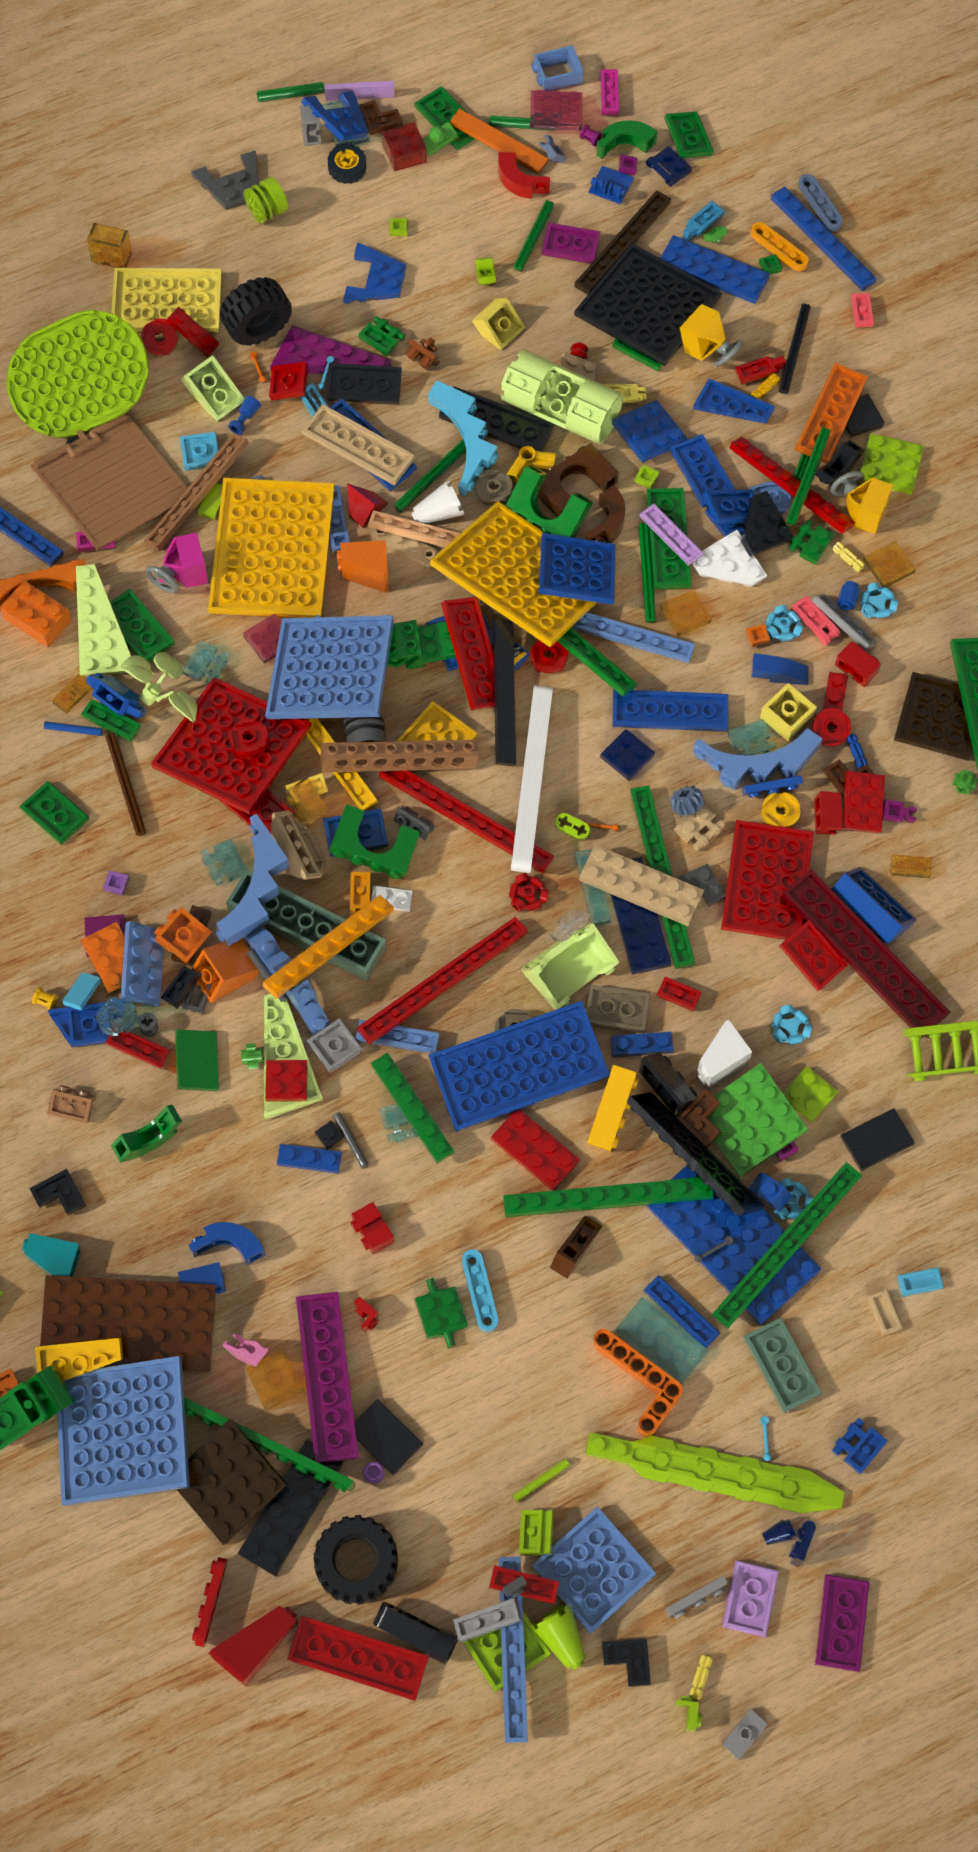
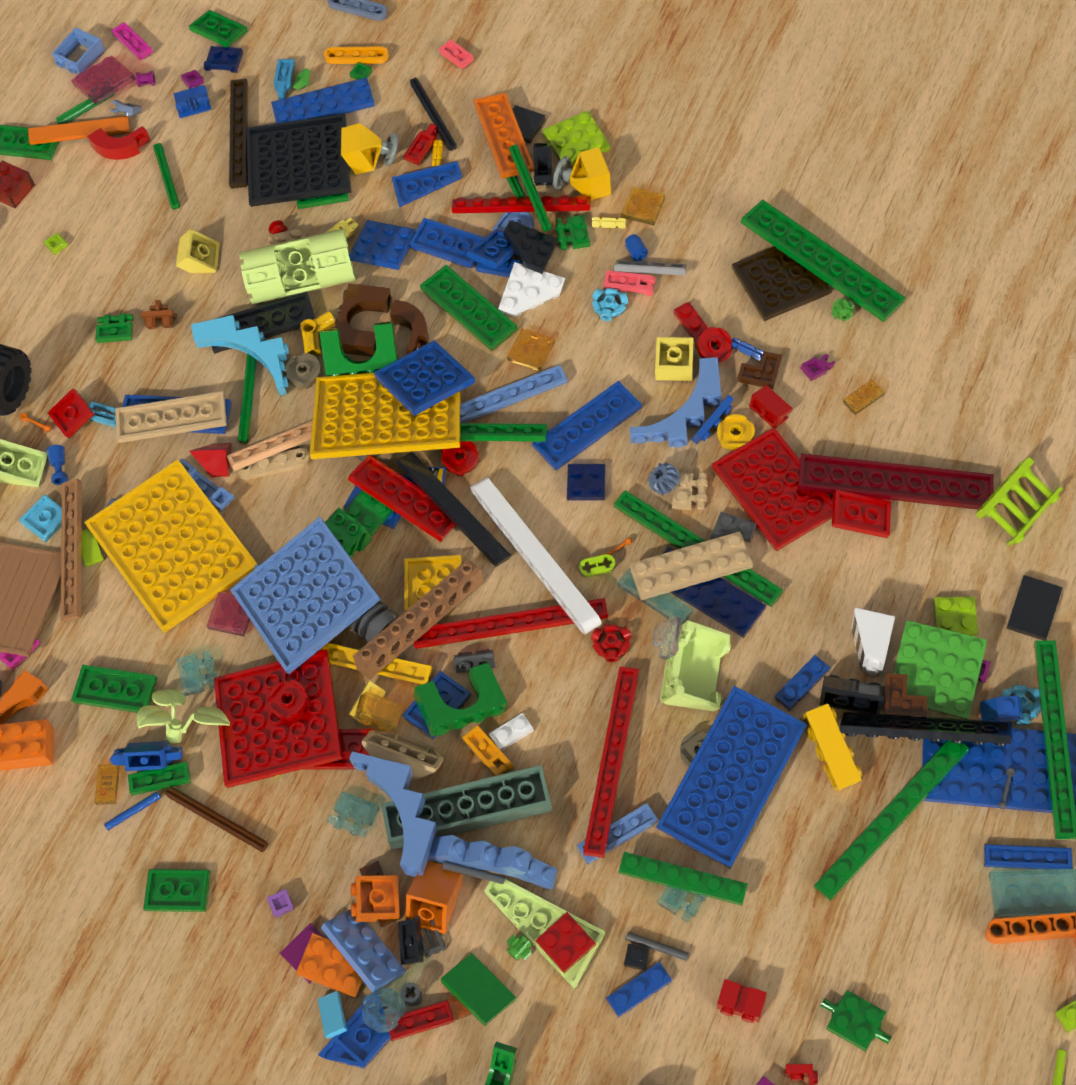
camera: 30 degrees left, 5 degrees down
(45, 999) = (307, 1047): yellow bush -> none
(99, 633) = (91, 720): yellowish green wing -> none
(183, 562) = (110, 611): dark pink piece -> none
(313, 348) = (85, 372): magenta wing -> none
(321, 386) = (90, 374): medium azure hinge -> none
(328, 946) = (504, 809): light orange plate -> none
(334, 1045) = (575, 882): light grey plate -> none
(364, 383) = (133, 371): black plate -> none
(364, 563) = (258, 498): orange slope -> none
(384, 276) = (78, 287): blue wing -> none
(438, 506) = (275, 413): white cone -> none
(439, 137) = (31, 158): bright green tile -> none
(480, 1290) = (868, 976): medium azure plate -> none
(485, 271) = (152, 225): lime bracket -> none
(535, 1149) = (802, 829): red plate -> none
(571, 243) = (200, 160): magenta plate -> none
(575, 1247) = (906, 877): reddish brown slope -> none
(617, 1008) = (760, 670): dark tan plate -> none
(626, 132) = (173, 57): green arch -> none
(646, 476) = (411, 277): lime plate -> none
(647, 575) = (475, 343): green axle -> none
(671, 534) = (469, 302): lavender tile -> none
(679, 994) = (793, 622): red plate -> none
(750, 734) = (660, 397): clear light blue plate -> none
(757, 635) = (598, 324): orange plate -> none
(779, 669) = (637, 336): blue slope -> none
(790, 1025) = (894, 578): medium azure piece -> none
(823, 239) = (382, 28): blue plate -> none
(858, 663) = (689, 288): red brick -> none
(863, 802) = (788, 378): red plate -> none
(873, 905) = (866, 444): blue slope -> none
(877, 602) = (657, 241): medium azure piece -> none

